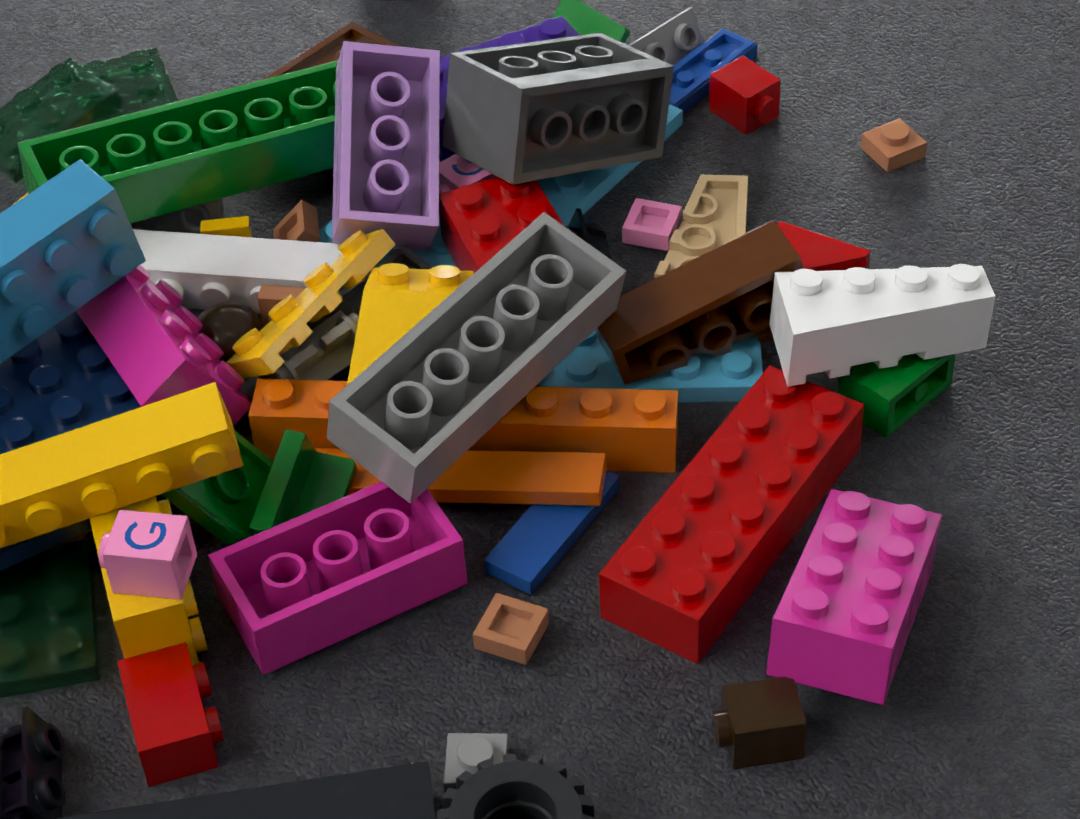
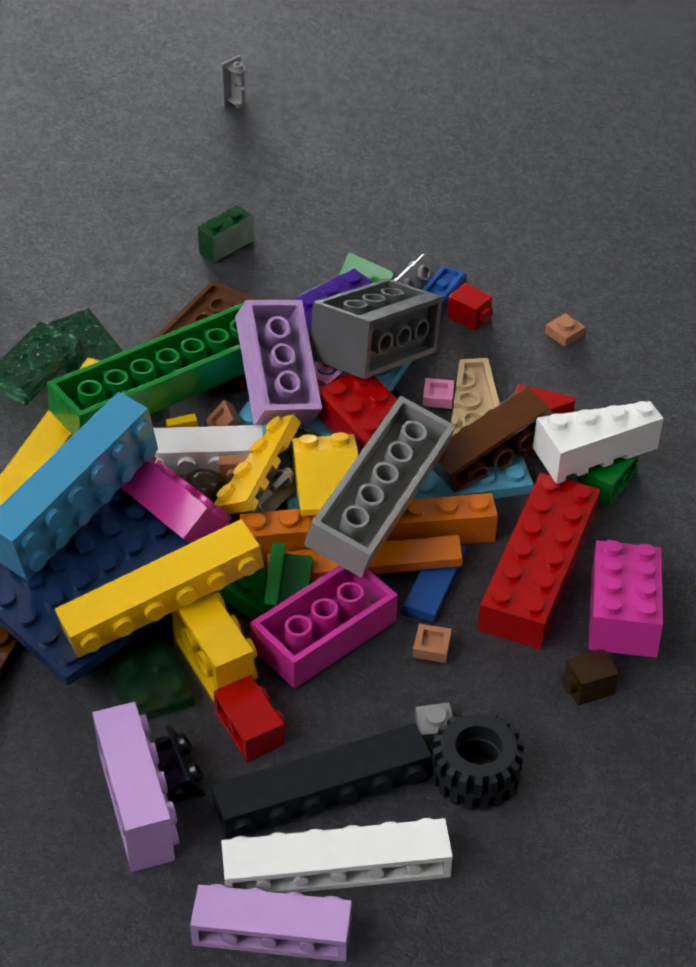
camera: 15 degrees left, 0 degrees up
(148, 554) = (228, 625): bright pink brick -> none

